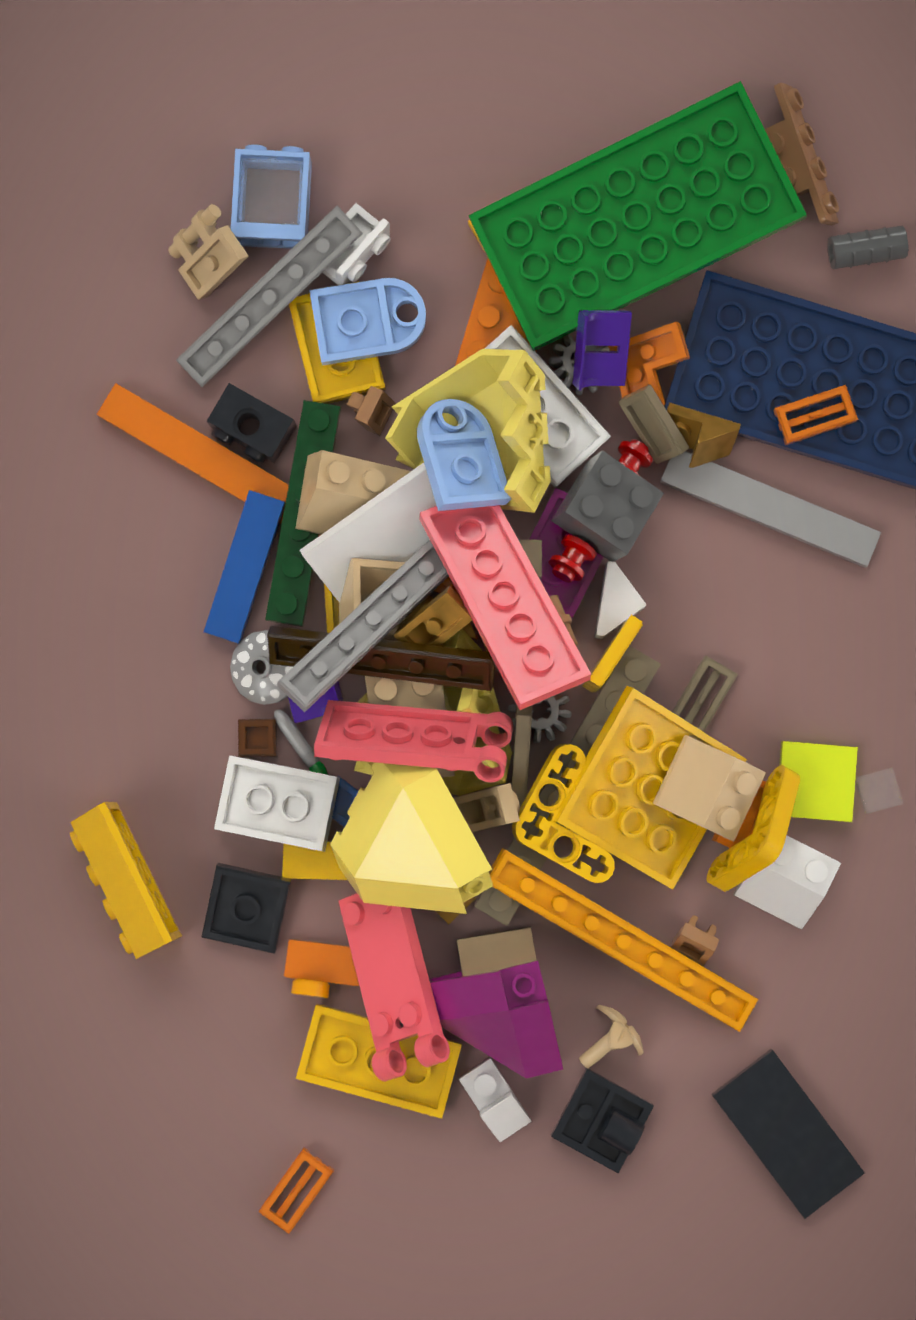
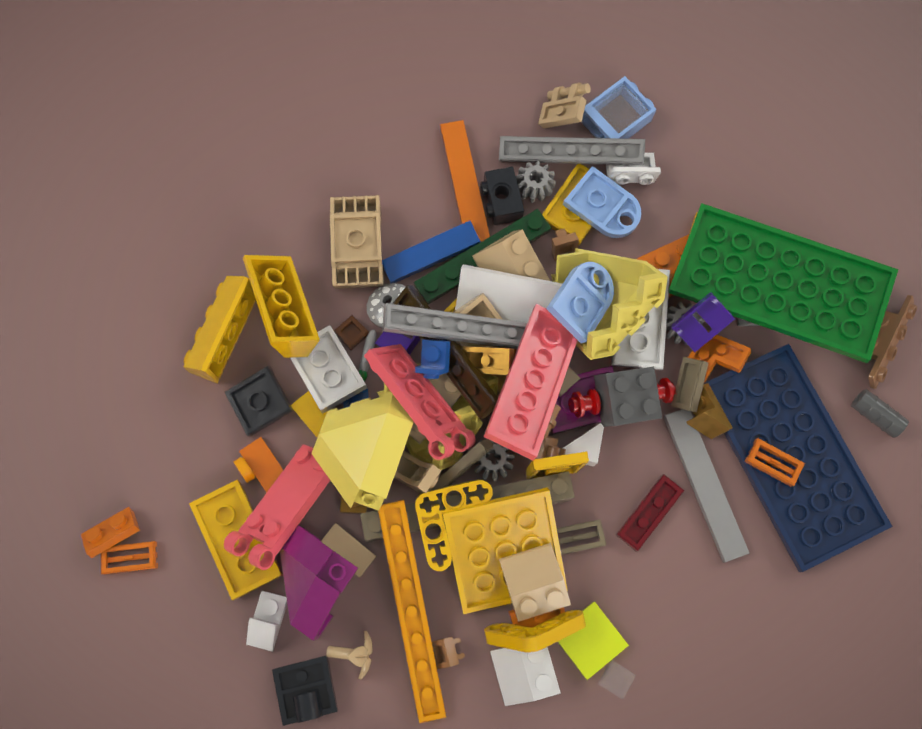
camera: 40 degrees right, 10 degrees down
(157, 640) = (356, 242): none -> tan plate
(163, 789) = (282, 304): none -> yellow slope
(251, 1188) = (110, 532): none -> orange plate
(262, 359) = (535, 181): none -> light grey gear
(381, 680) = (434, 358): none -> blue bracket
(591, 644) = (550, 449): none -> medium nougat tile
(746, 595) = (650, 512): none -> dark red tile

